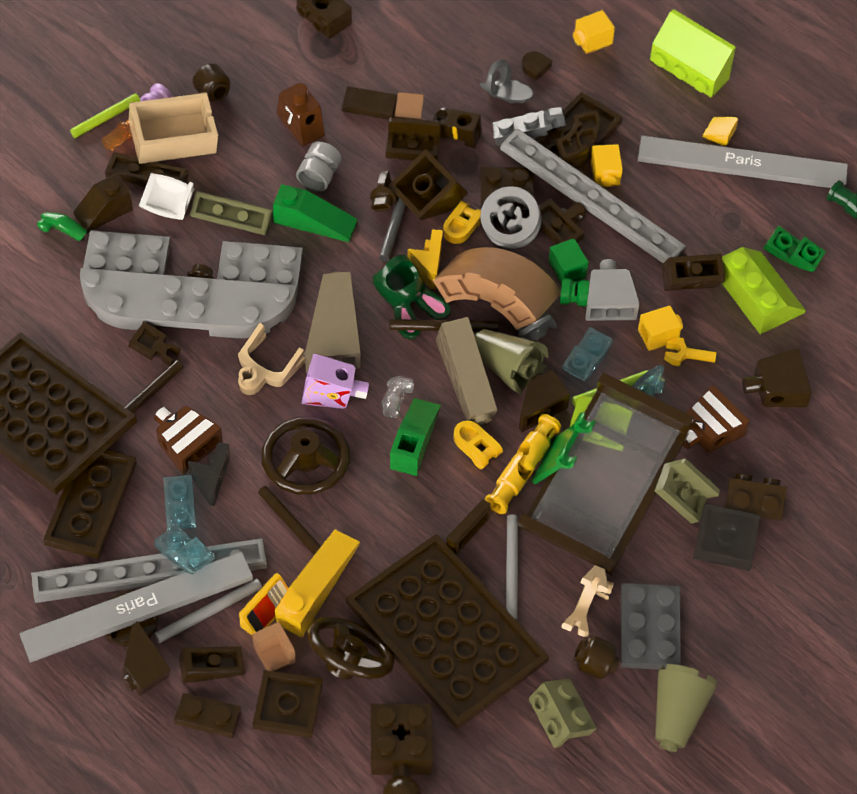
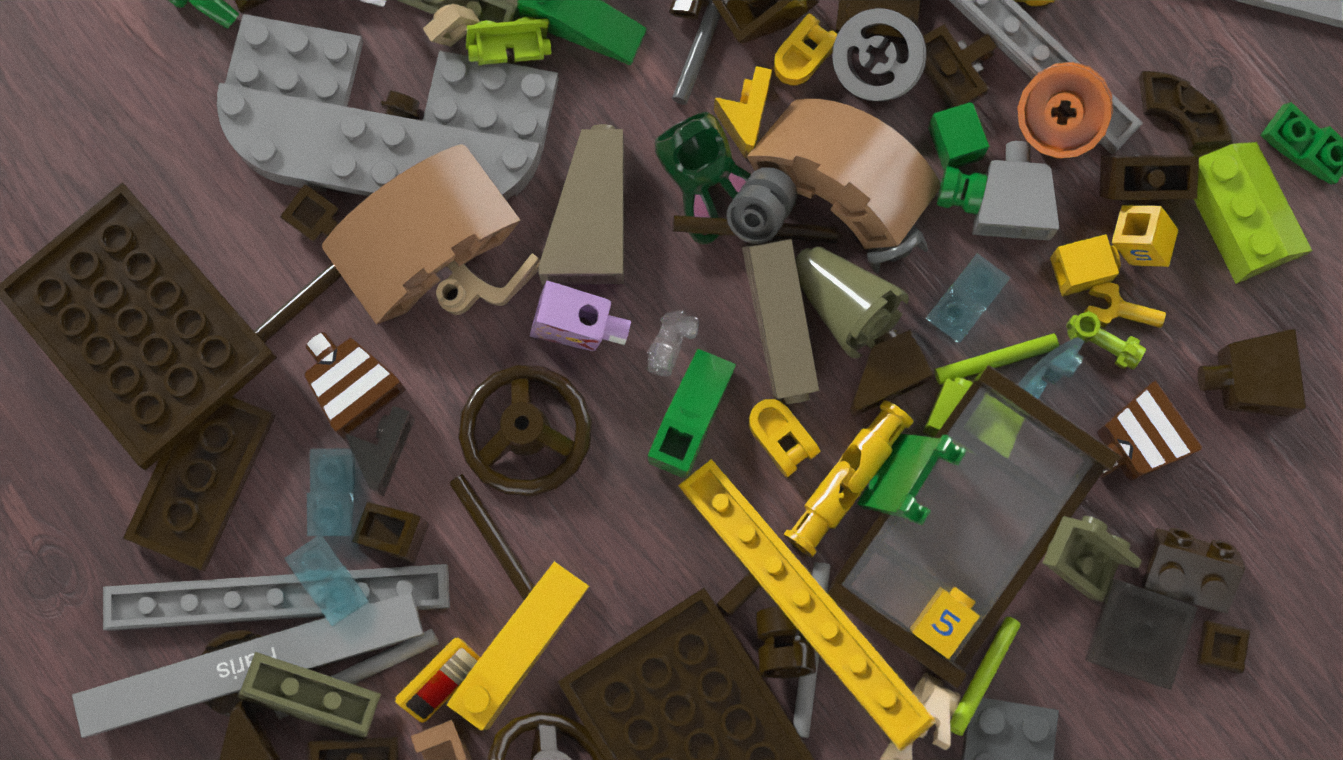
camera: 10 degrees right, 20 degrees up
(180, 620) = (309, 695): none -> olive slope
(221, 338) = (417, 227): none -> medium nougat panel
(224, 521) = (391, 531): none -> dark brown slope
(229, 223) = (450, 24): none -> tan plate
(259, 229) = (489, 40): none -> lime hinge
(446, 304) = (762, 205): none -> dark grey wheel
(494, 559) = (782, 662): none -> dark brown wheel
(504, 525) = (808, 606): none -> yellow tile
(598, 530) = (945, 620): none -> yellow brick
(627, 569) = (984, 675): none -> lime bar
(630, 221) = (1060, 134): none -> orange wheel
(694, 375) = (1087, 328): none -> lime bar
(695, 305) = (1145, 235): none -> yellow brick
(706, 233) = (1186, 108): none -> dark brown tile
(782, 542) = (1223, 647): none -> dark brown tile

